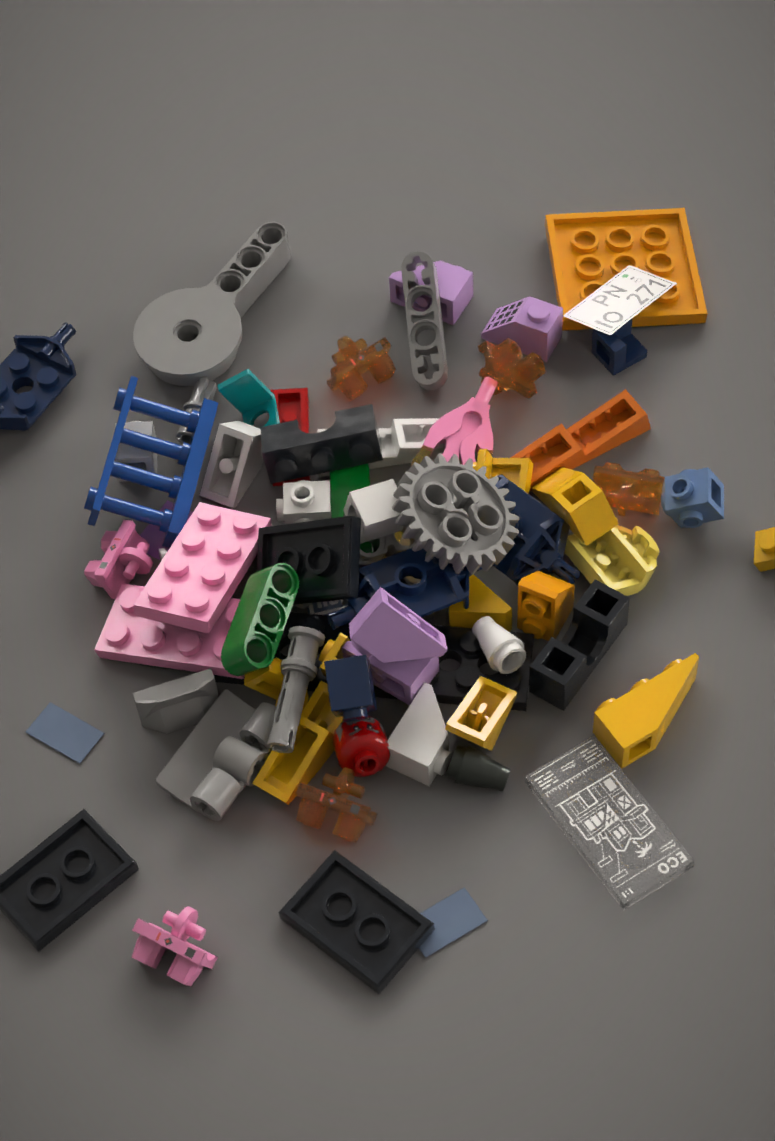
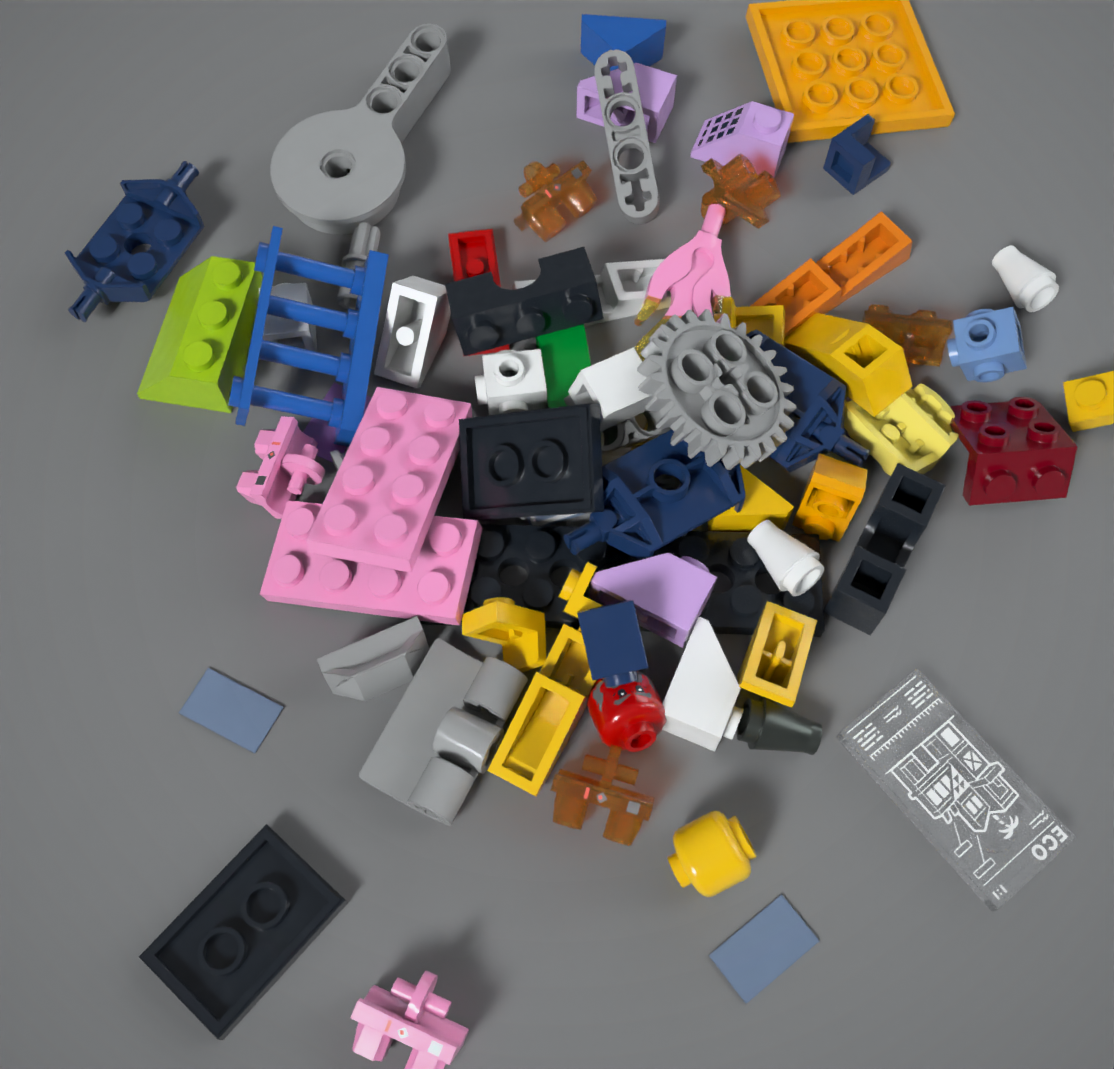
camera: 10 degrees left, 10 degrees up
(69, 458) = (204, 336): none -> lime slope
(250, 397) = (425, 245): teal bracket -> none
(260, 619) = (477, 550): green beam -> none
(298, 671) = (535, 618): light grey pin -> none
(356, 921) = (650, 962): black tile -> none
(394, 631) = (663, 562): lavender slope -> none
(412, 849) = (711, 853): none -> yellow head
(439, 240) = (637, 37): none -> blue slope
(619, 300) = (856, 102): white sticker -> none
(639, 718) = (980, 637): yellow slope -> none
(699, 582) = (1013, 451): none -> dark red bracket
(741, 452) = (1025, 279): none -> white cone

